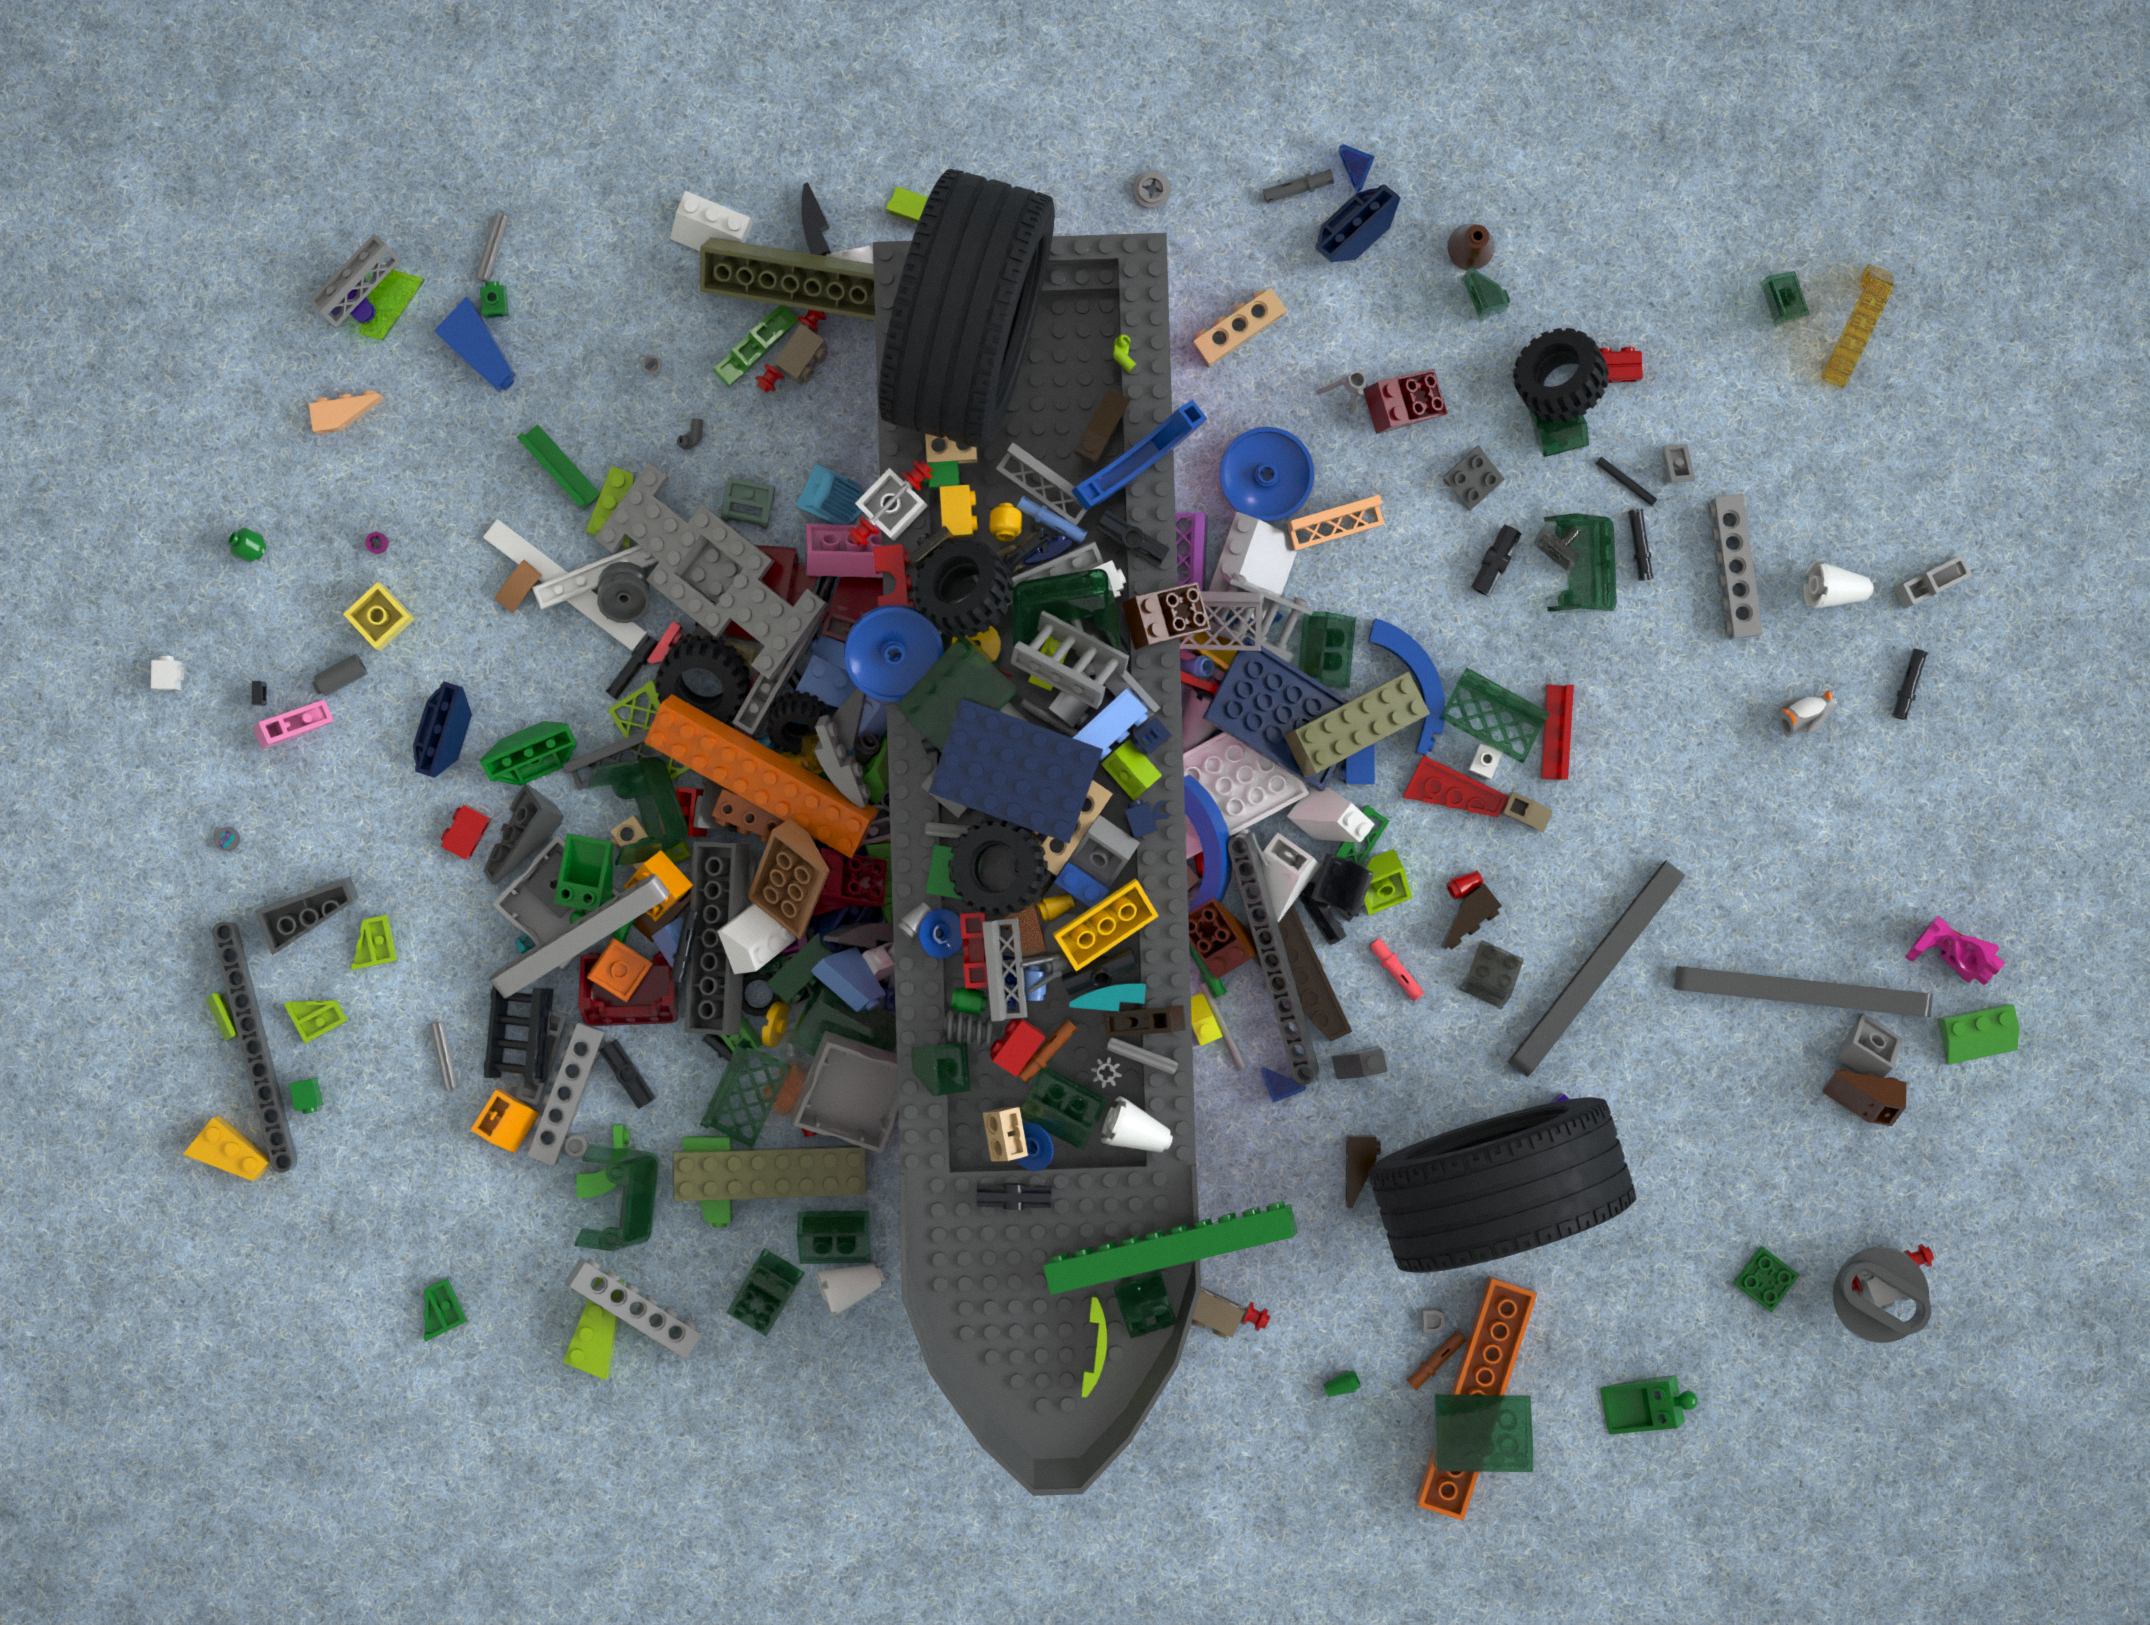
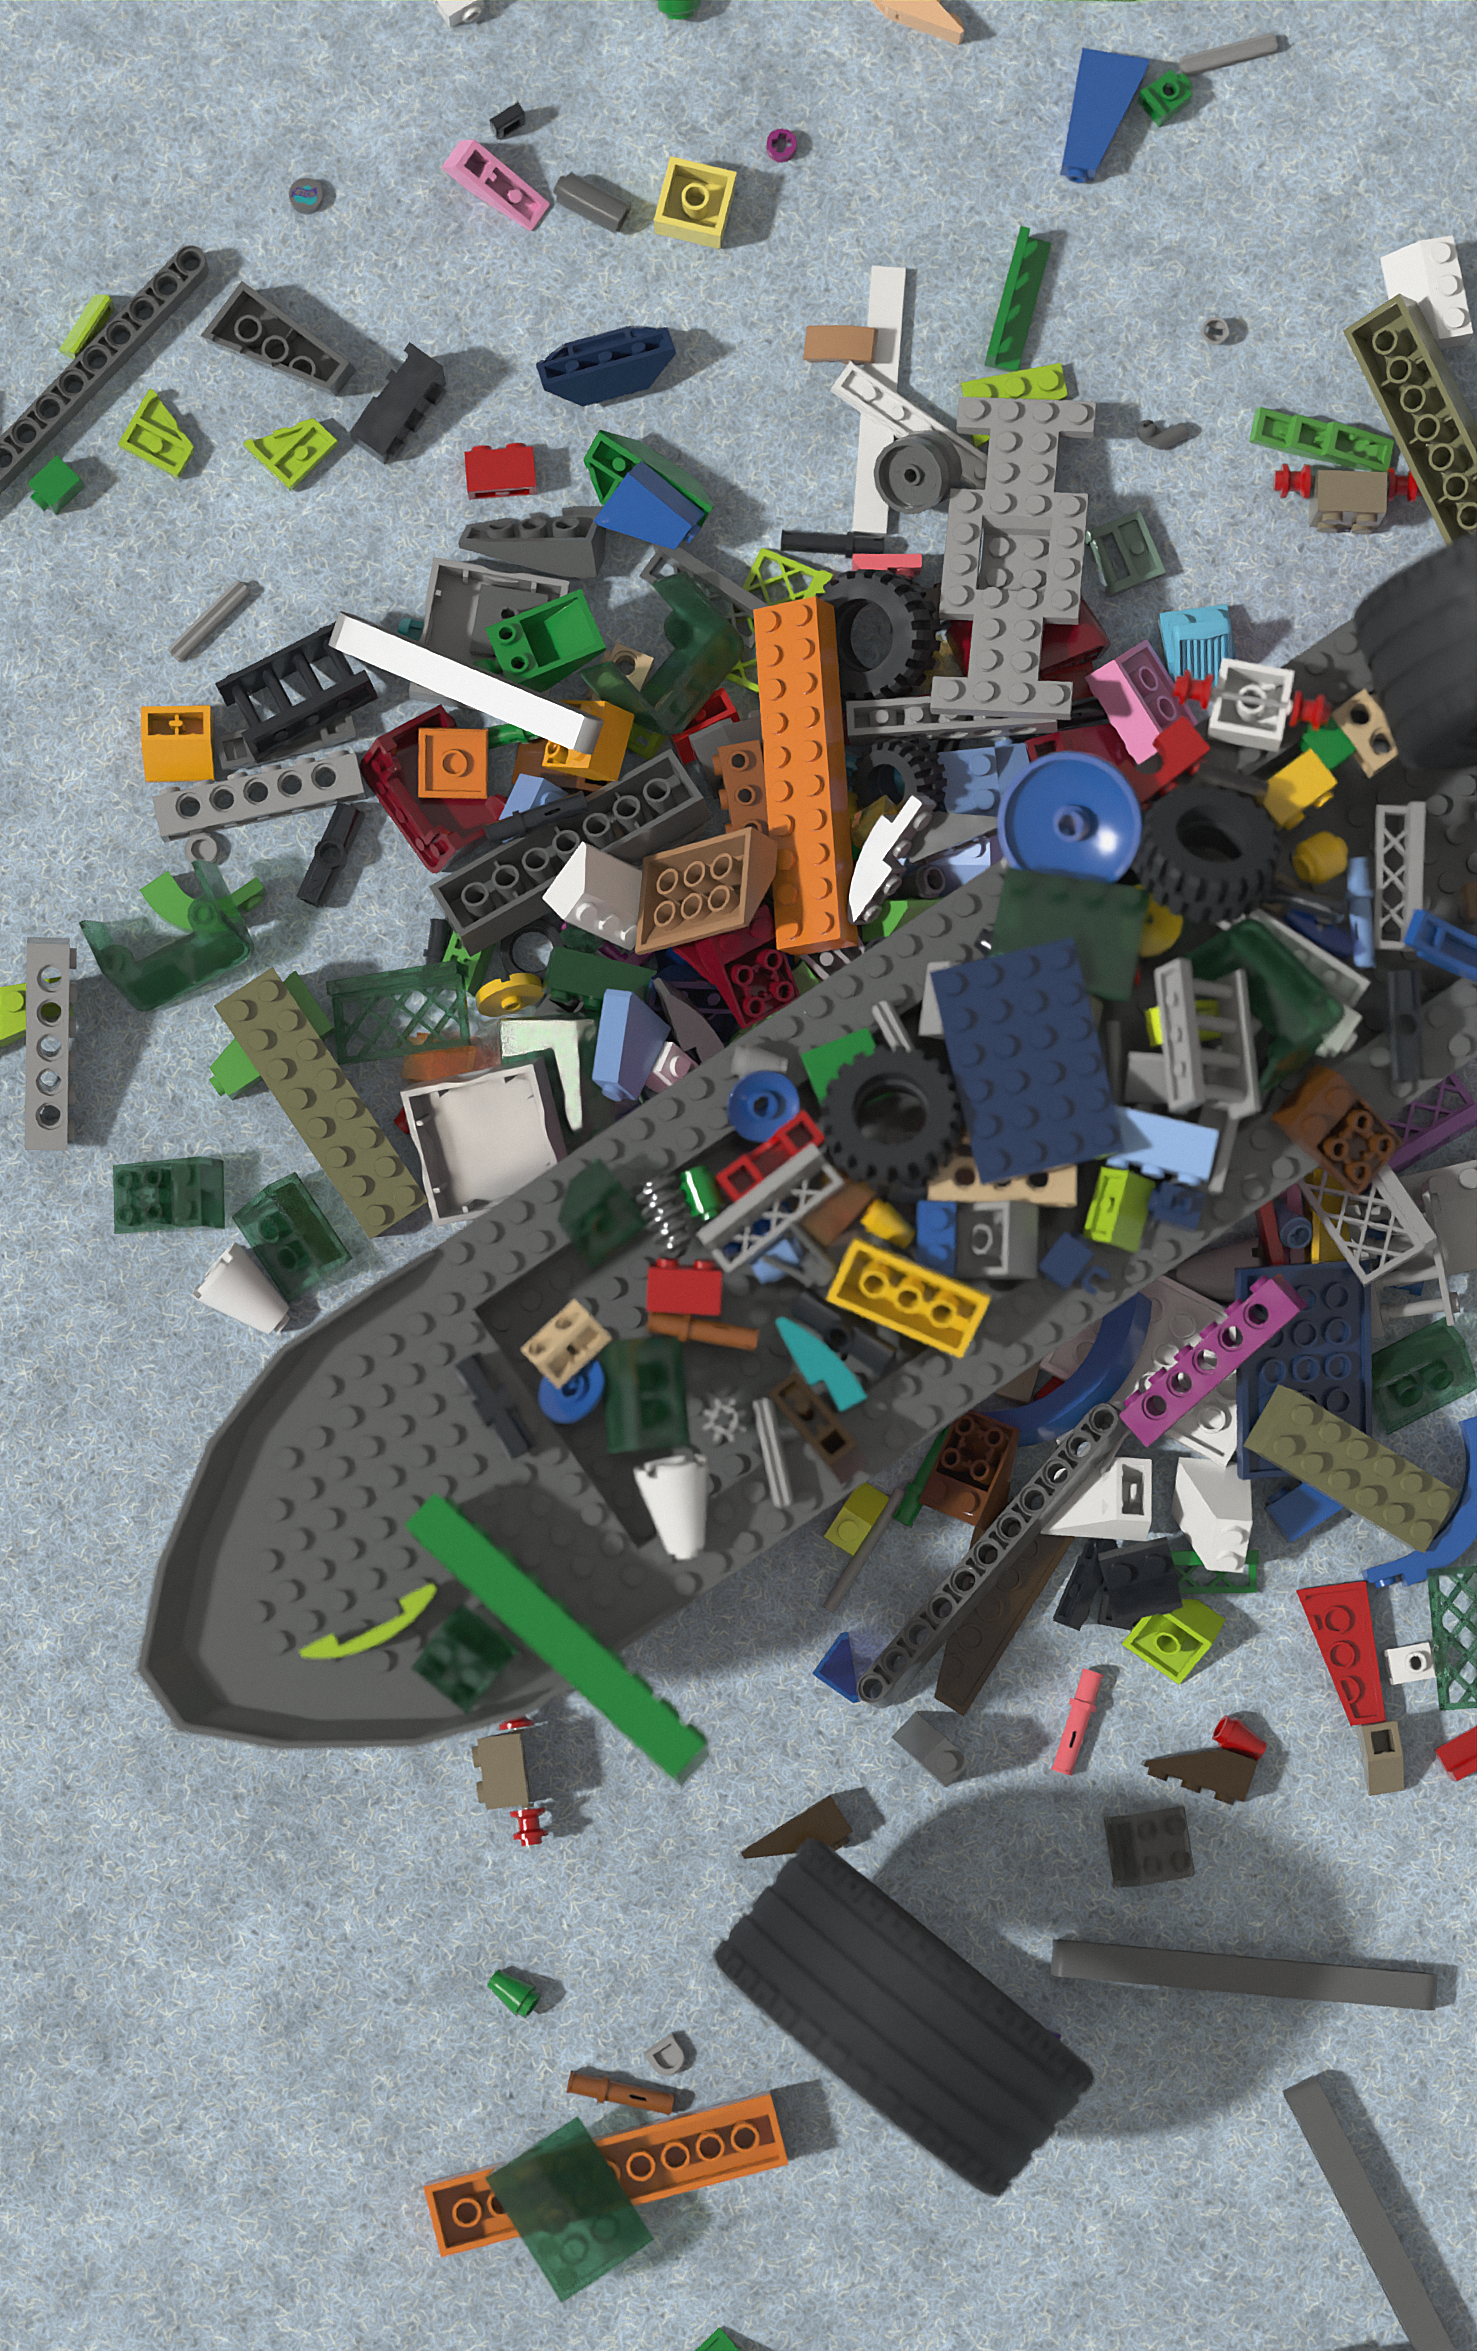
camera: 50 degrees right, 5 degrees down
(389, 865) = (400, 406): none -> black wedge
(546, 761) = (650, 510): none -> blue slope
(1242, 707) = (1282, 1305): none -> magenta brick

